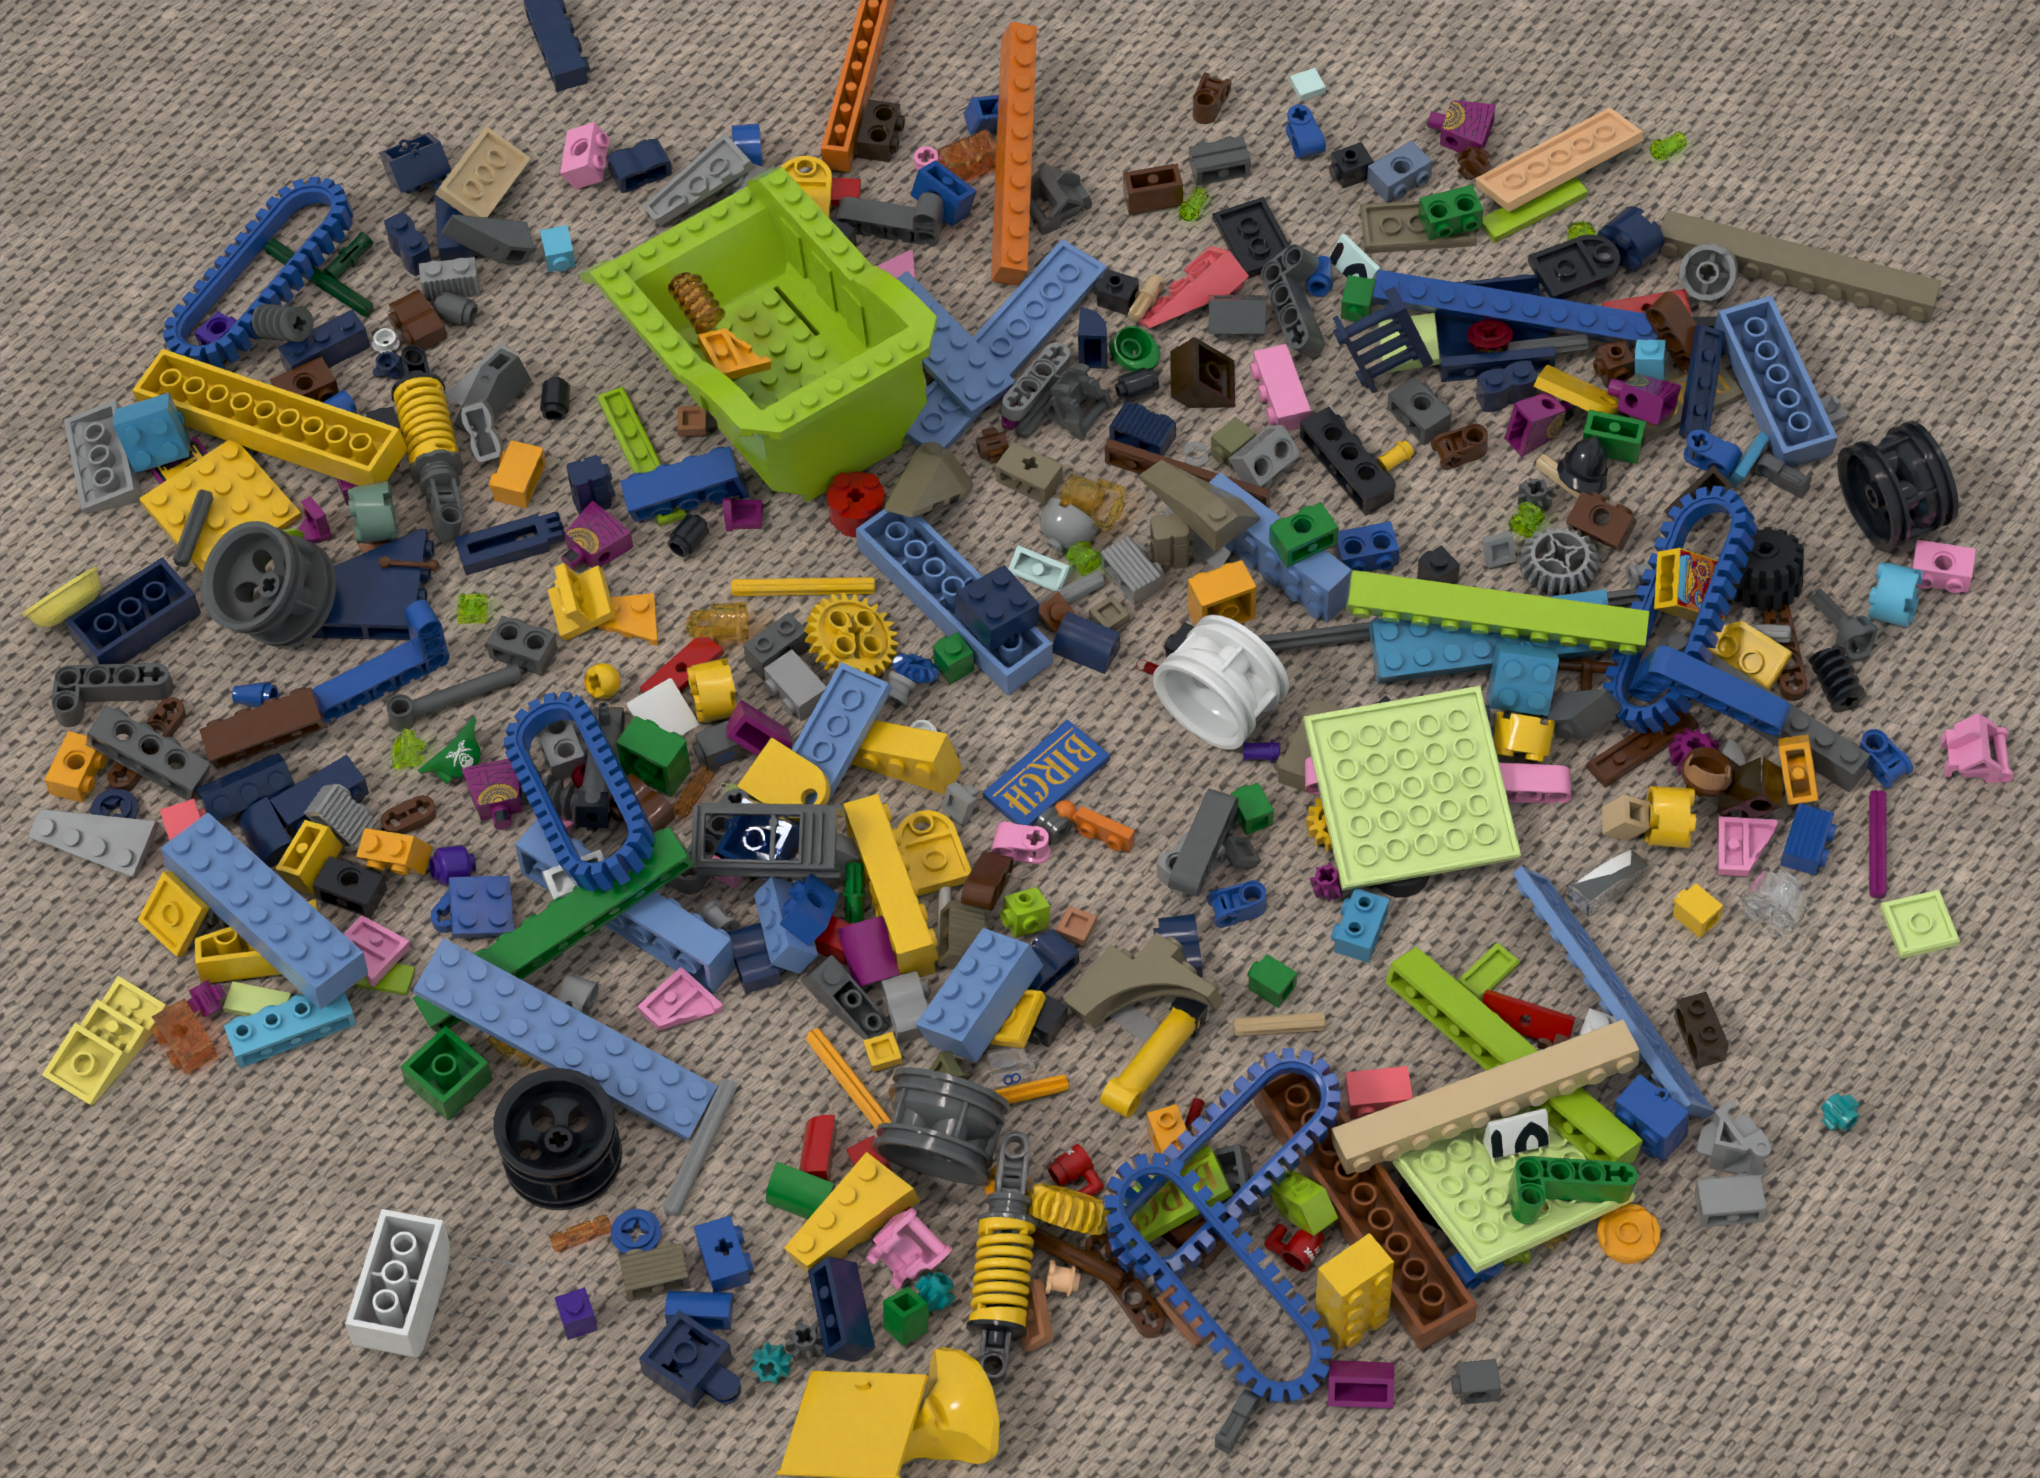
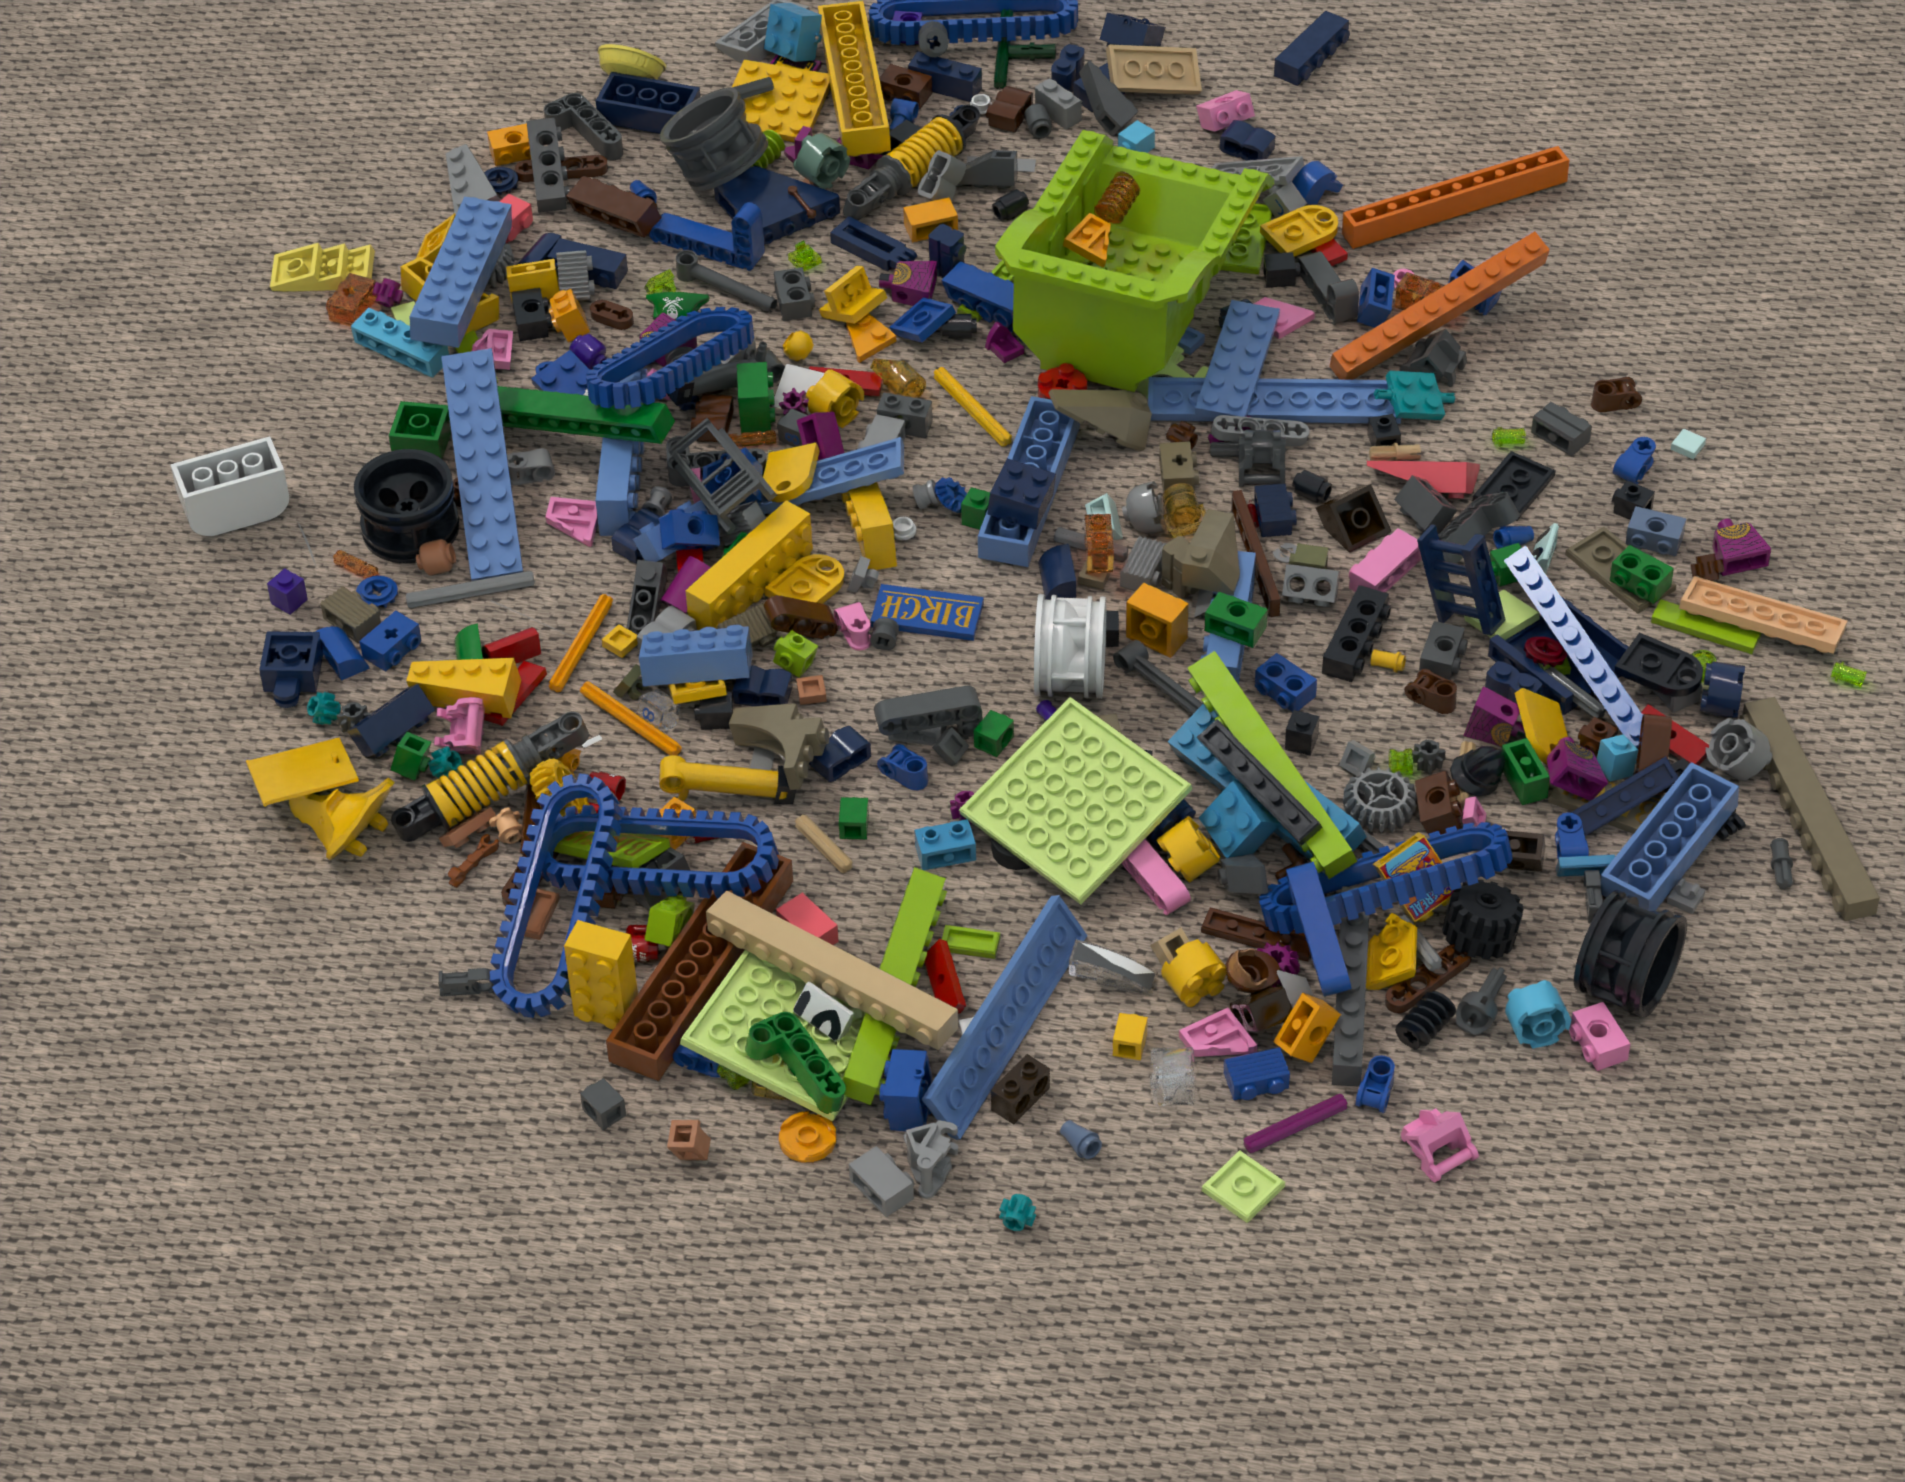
camera: 55 degrees right, 10 degrees down
(245, 787) = (554, 220): dark blue brick -> none
(636, 1153) = (436, 557): none -> nougat head
(659, 558) = (922, 319): none -> blue tile
(688, 720) = (790, 399): none -> magenta gear
(851, 634) = (927, 430): yellow gear -> none
(879, 131) = (1400, 241): dark brown brick -> none
(941, 1125) = (560, 677): dark grey wheel -> none
(1053, 610) = (1072, 537): dark orange plate -> none
(1067, 1318) = (483, 850): none -> dark orange piece
(1083, 557) = (1129, 533): clear neon green wheel -> none
(1090, 586) = (1098, 543): none -> clear orange brick
(1092, 239) = (1414, 395): none -> teal plate
(1092, 339) = (1318, 436): dark blue brick -> none
(1097, 826) = (902, 655): orange plate -> none
(1130, 339) = (1342, 469): green hat -> none
(1152, 188) = (1493, 403): reddish brown brick -> none
(1361, 1384) = (551, 1037): magenta brick -> none
(1520, 632) = (1259, 782): none -> black tile
(1580, 1331) = (688, 1140): none -> nougat brick
(1628, 501) = (1473, 812): none -> bright pink plate
(1786, 1016) = (1083, 1141): none -> sand blue cone
(1841, 323) = (1781, 863): none -> dark grey axle

